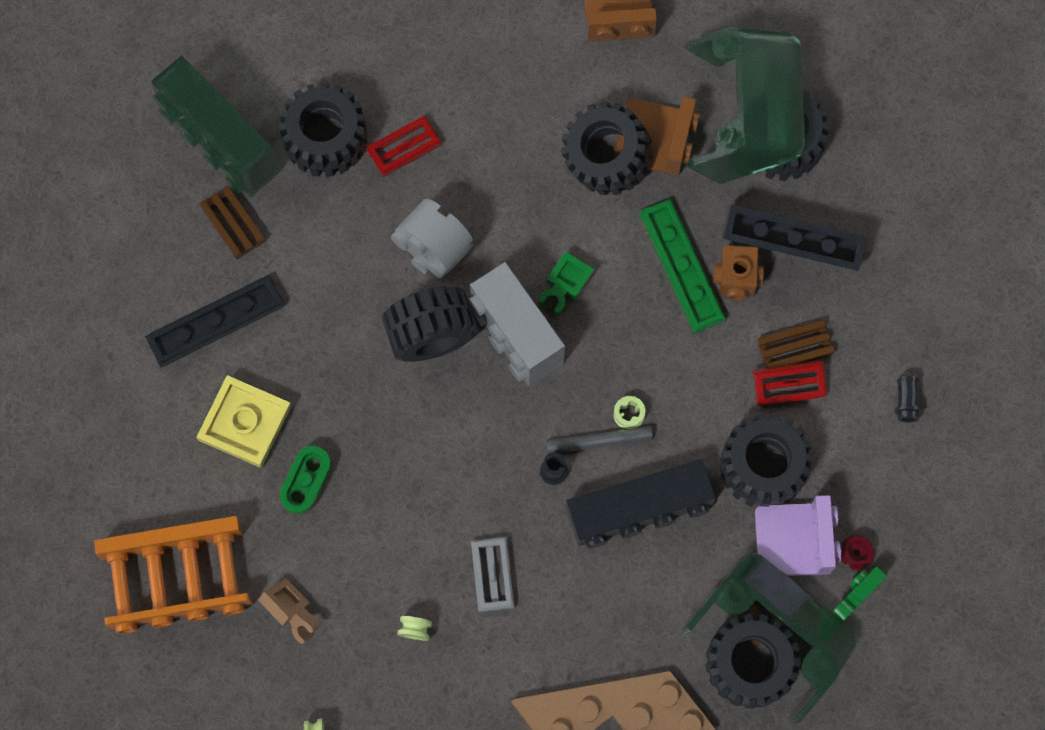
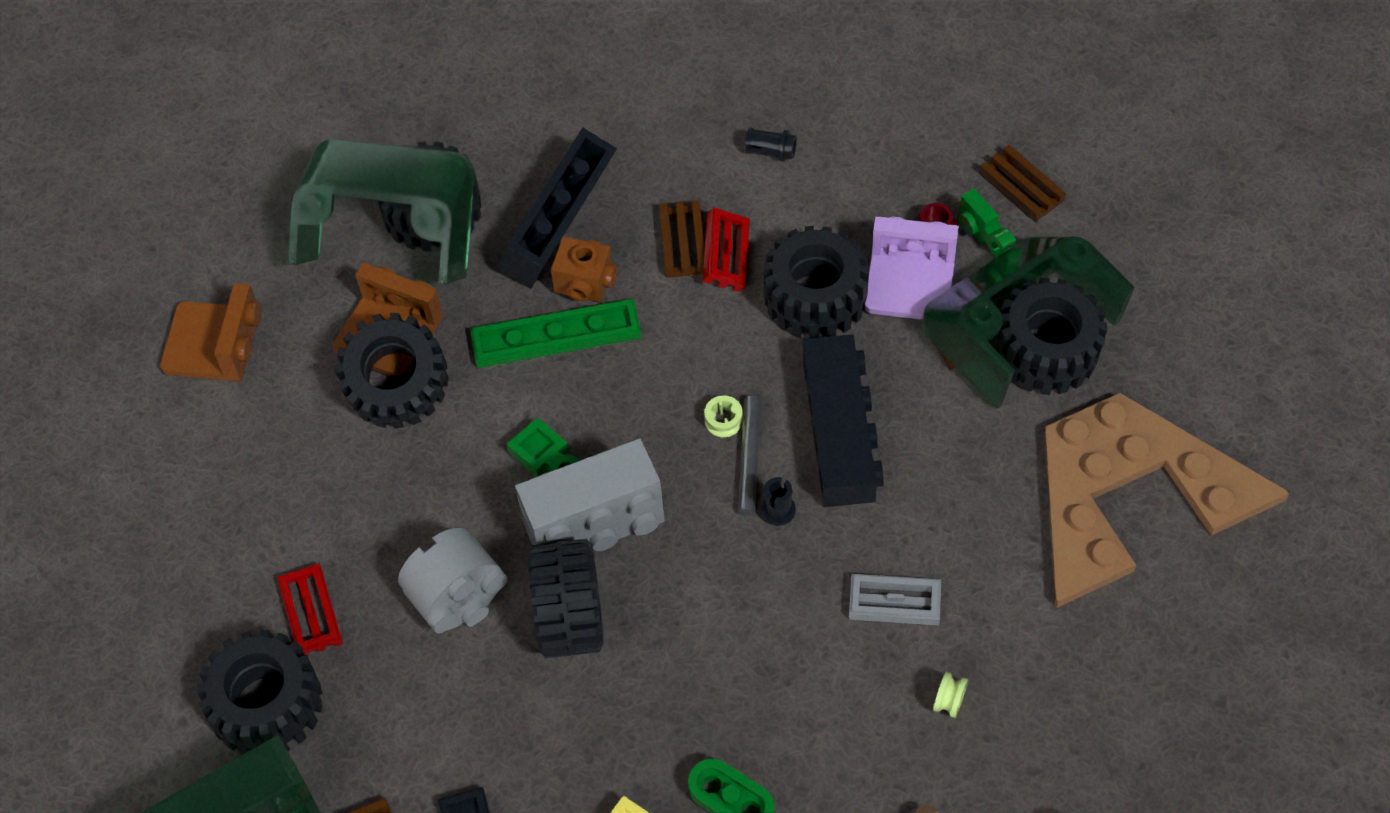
camera: 75 degrees left, 15 degrees down
(935, 596) = (1028, 170): none -> reddish brown tile

